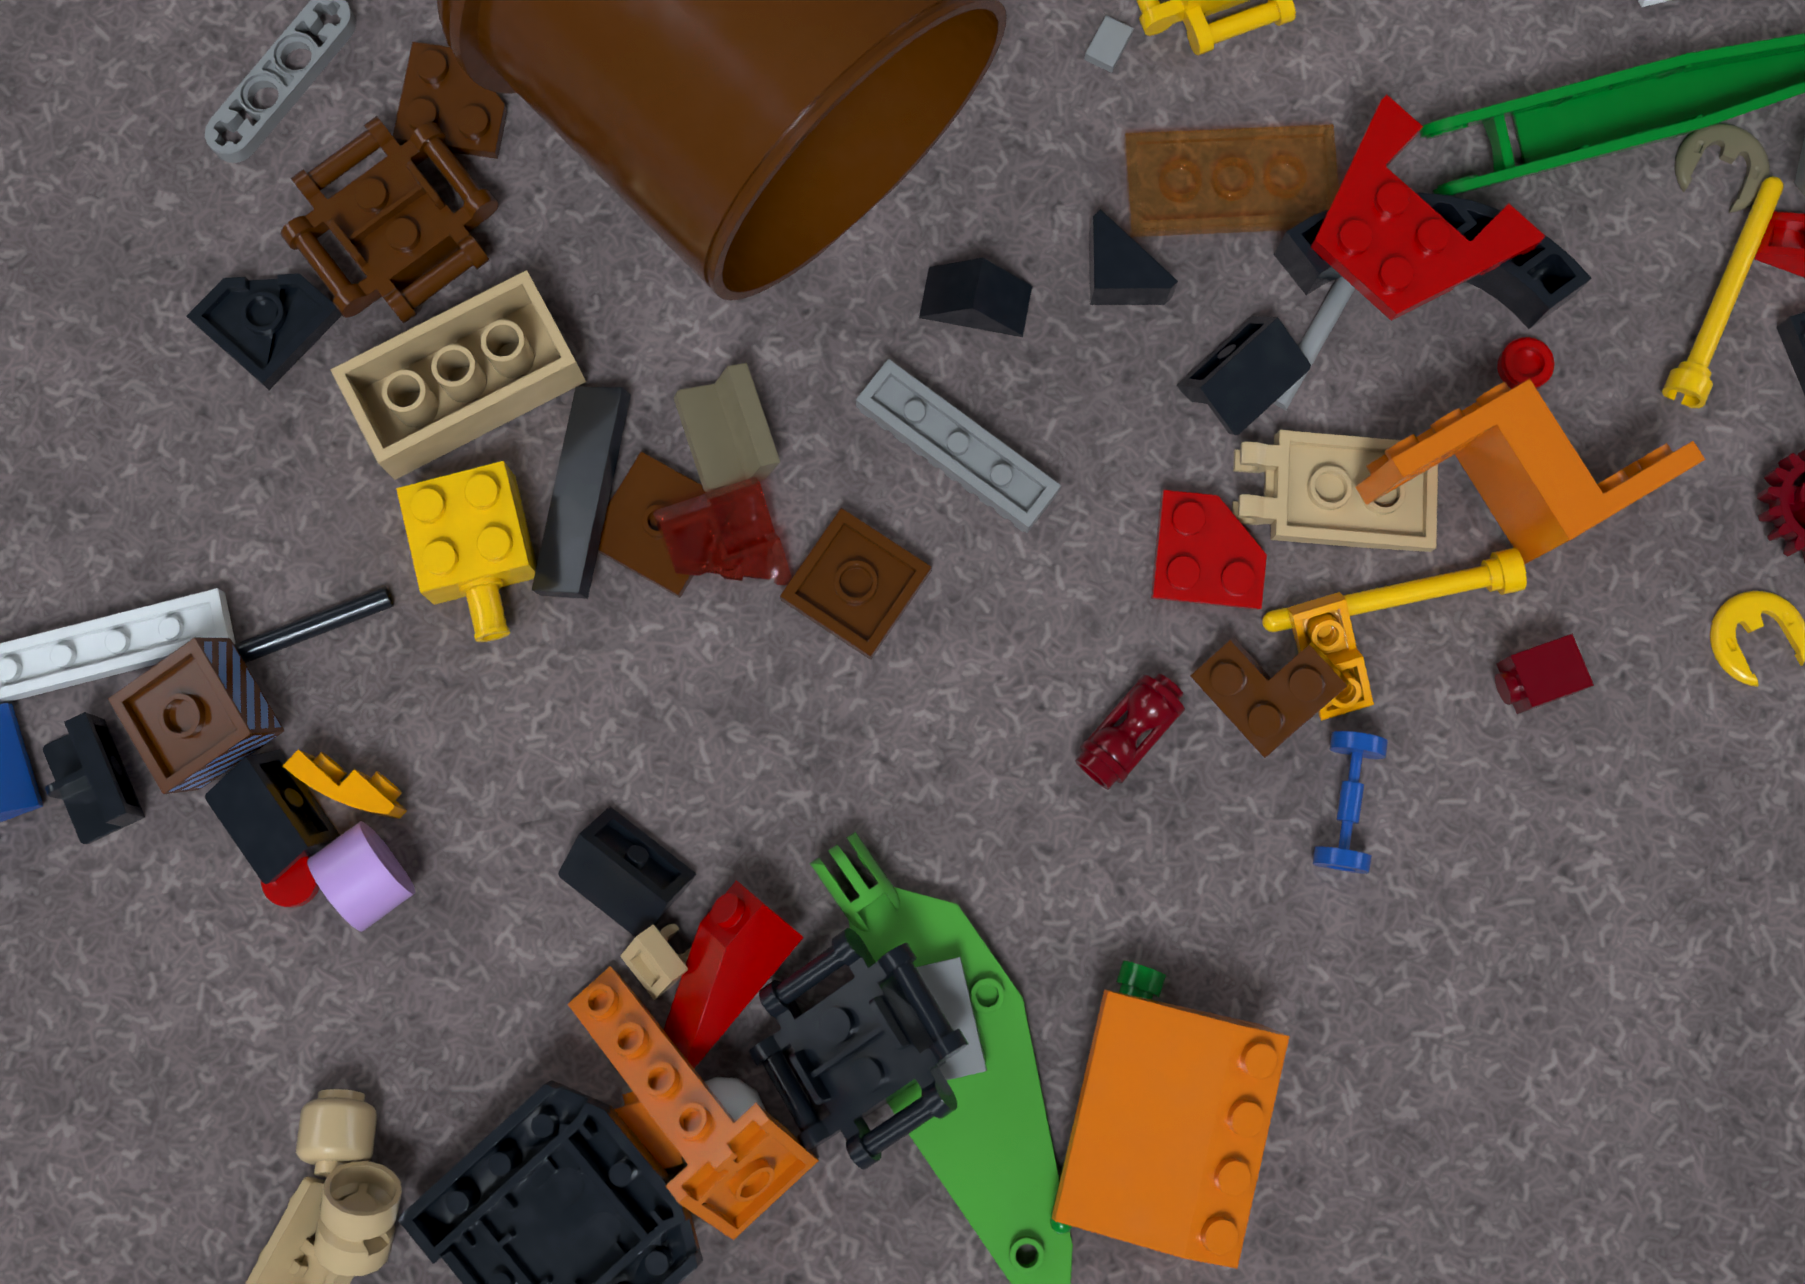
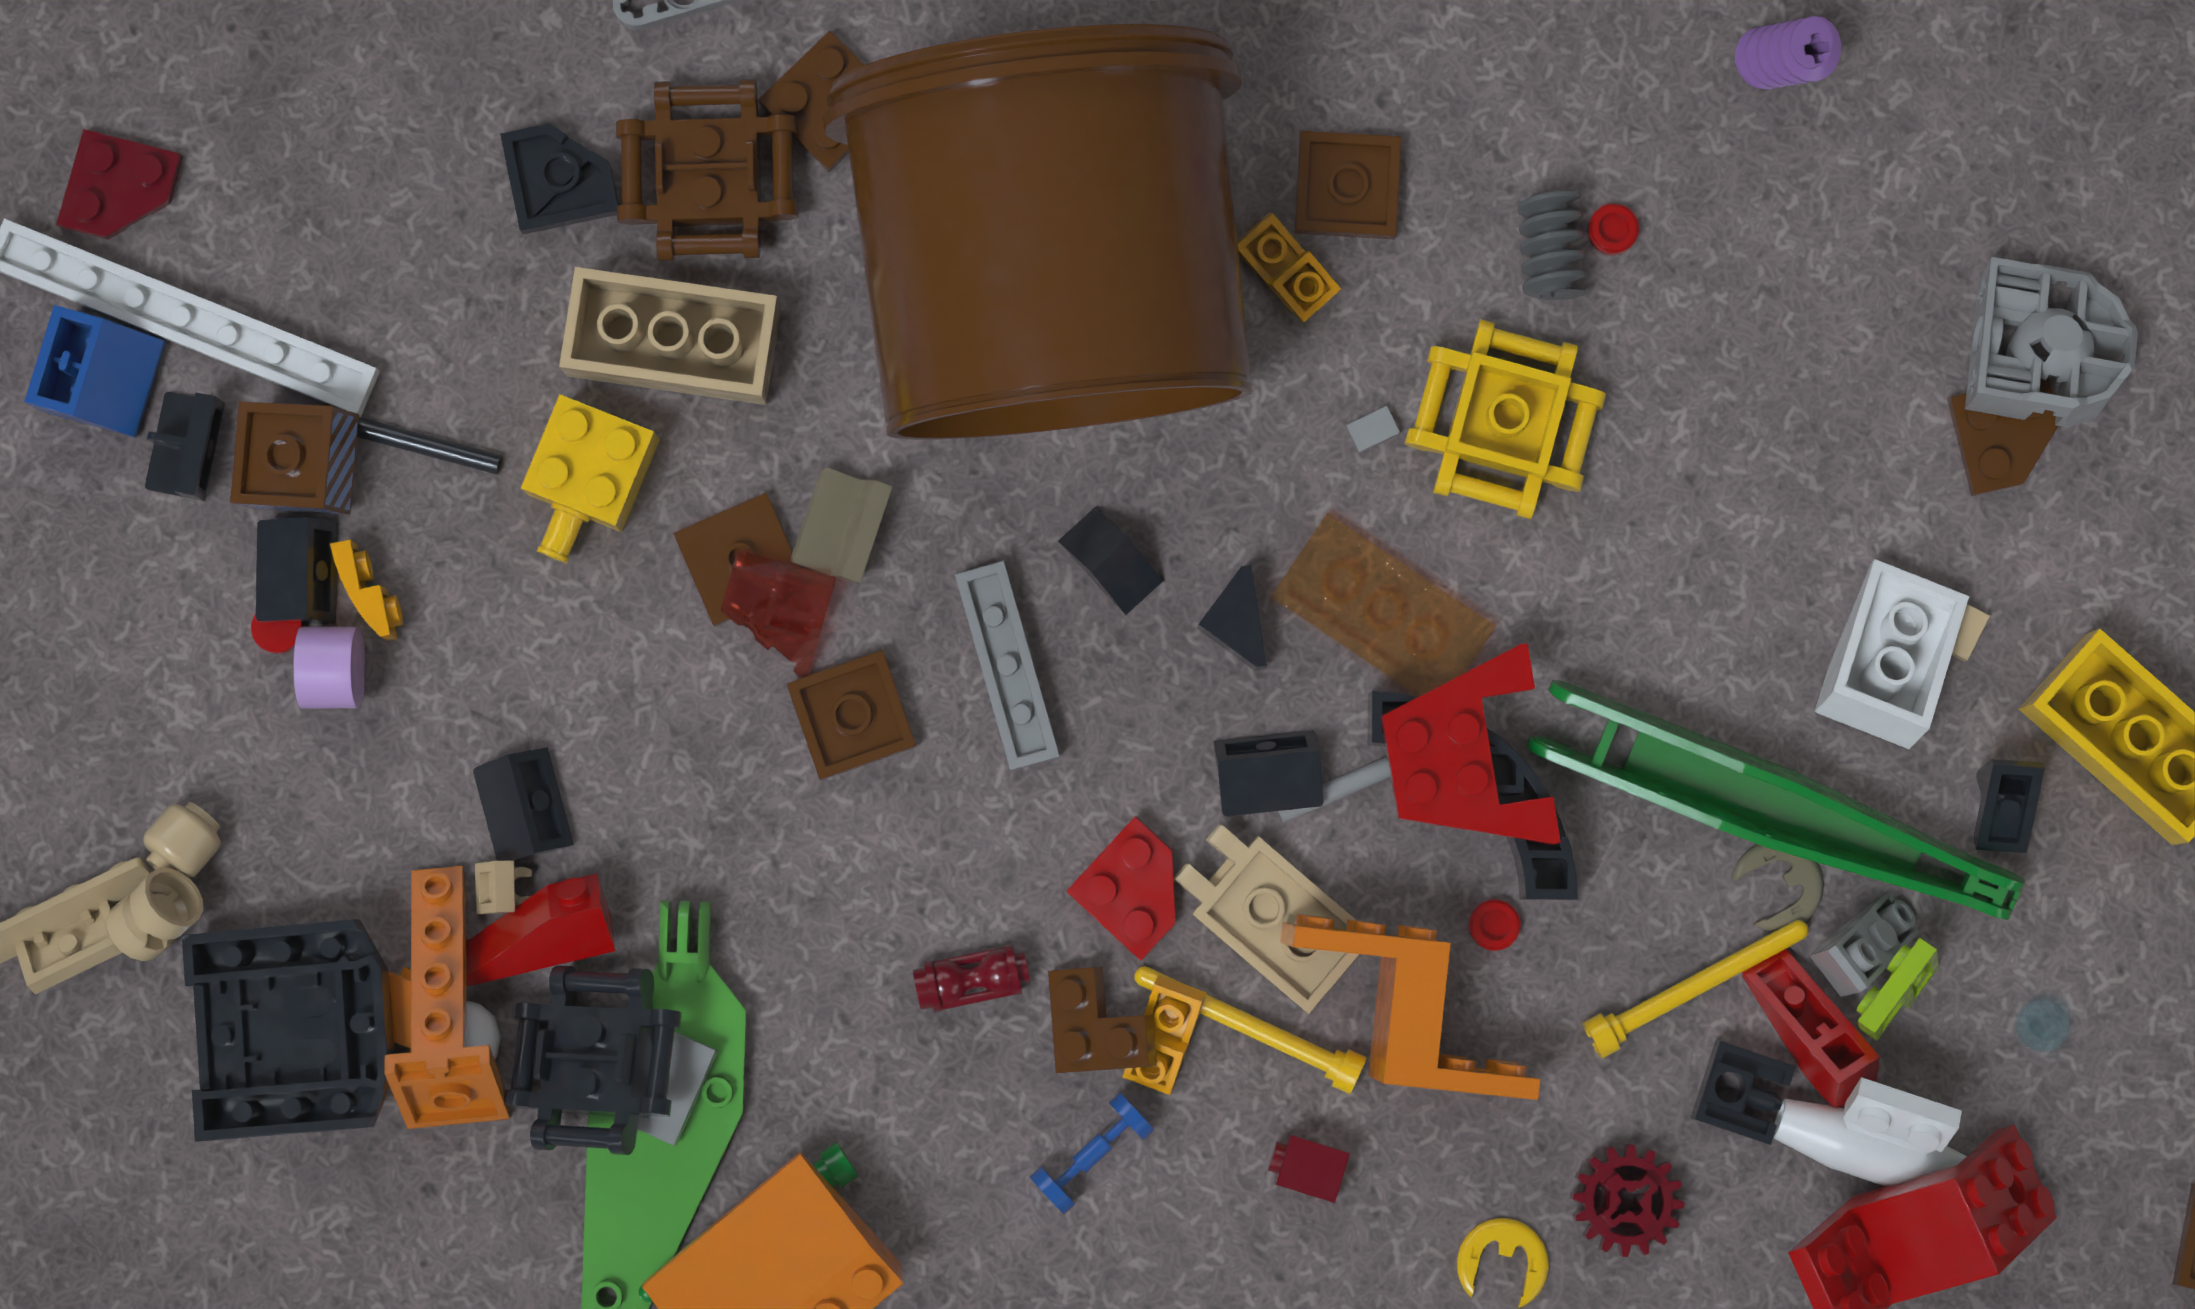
camera: 35 degrees right, 5 degrees up
(581, 492) = (698, 492): black tile -> none

